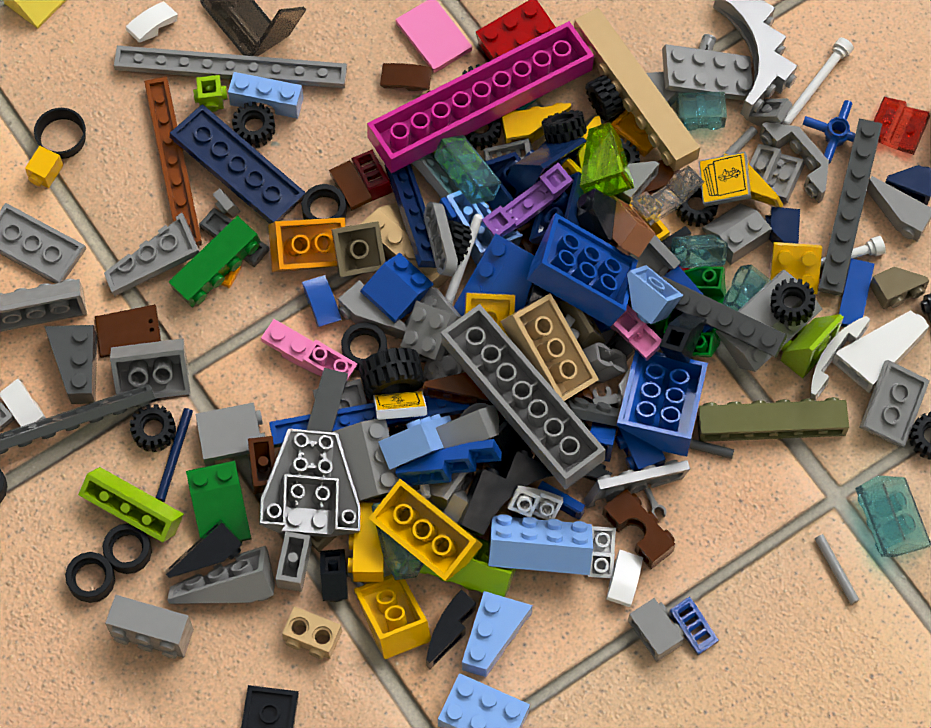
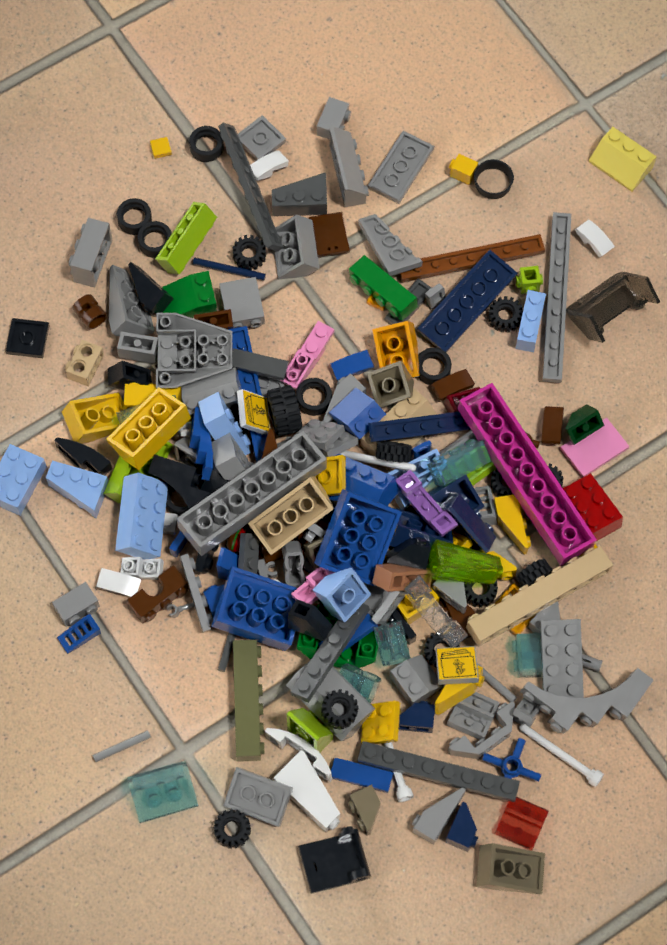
camera: 90 degrees right, 0 degrees up
(245, 624) = (89, 311): none -> reddish brown wheel
(406, 38) = (583, 423): none -> dark green slope
(440, 239) = (391, 437): light grey beam -> none
(456, 505) = (175, 455): light grey slope -> none
(535, 502) = (176, 506): white slope -> none
(564, 126) = (501, 538): black tyre -> none

